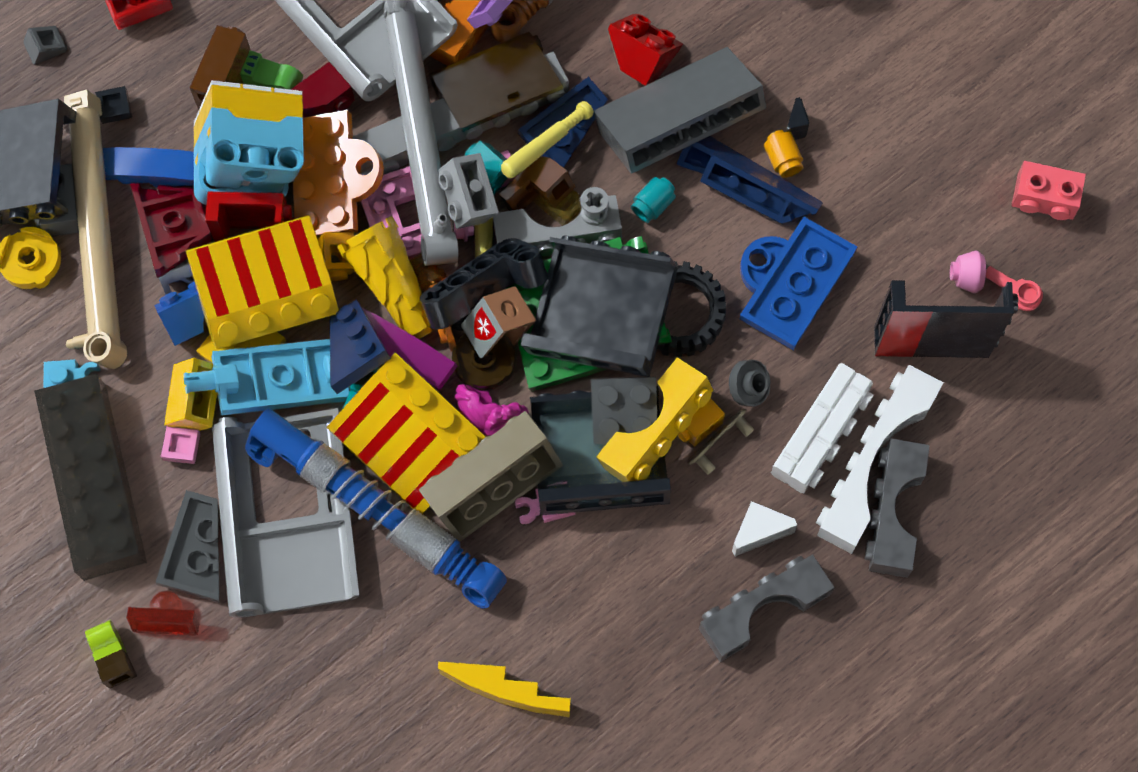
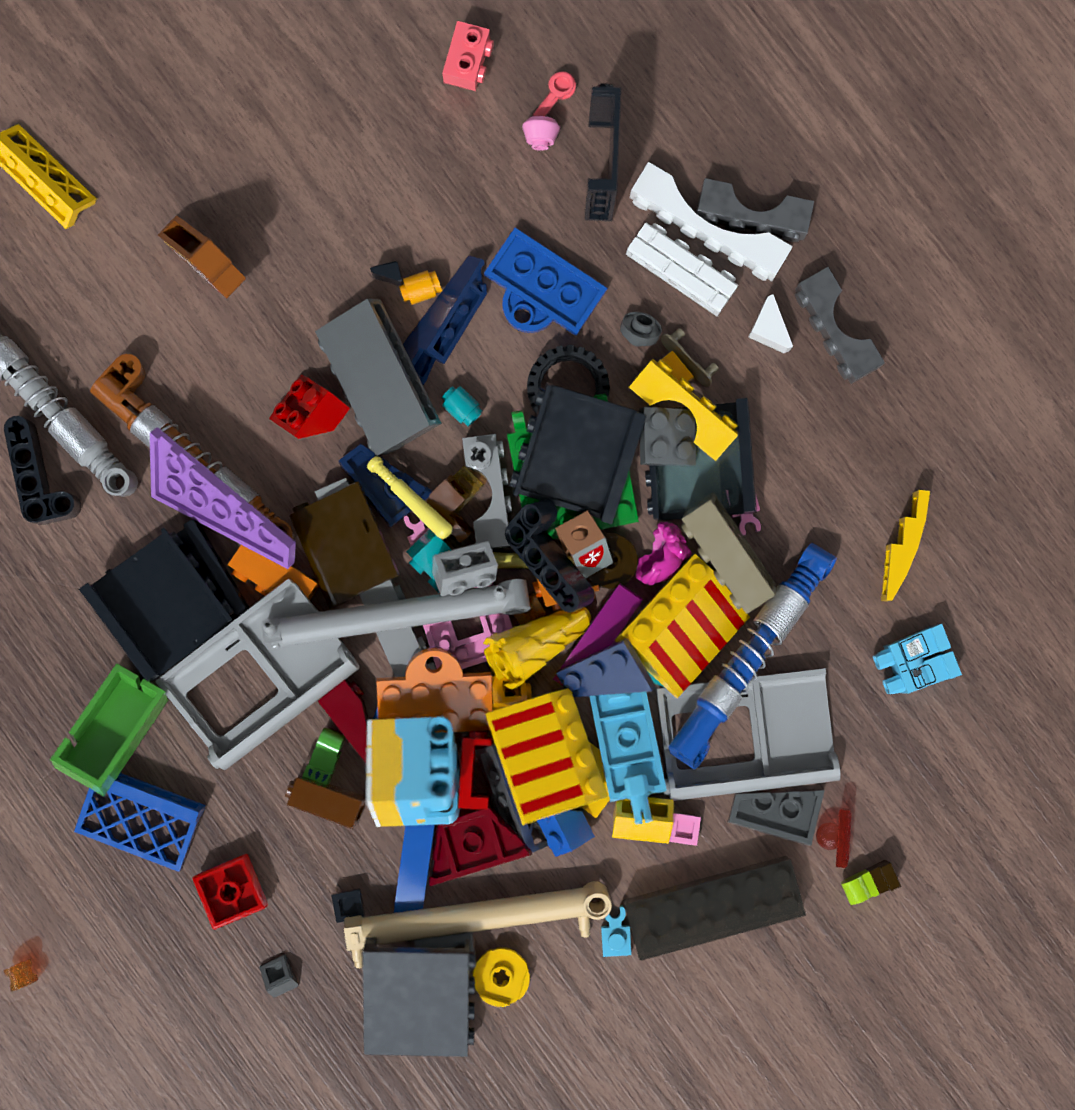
camera: 90 degrees left, 15 degrees up
(361, 695) = (907, 661): none -> medium azure hips

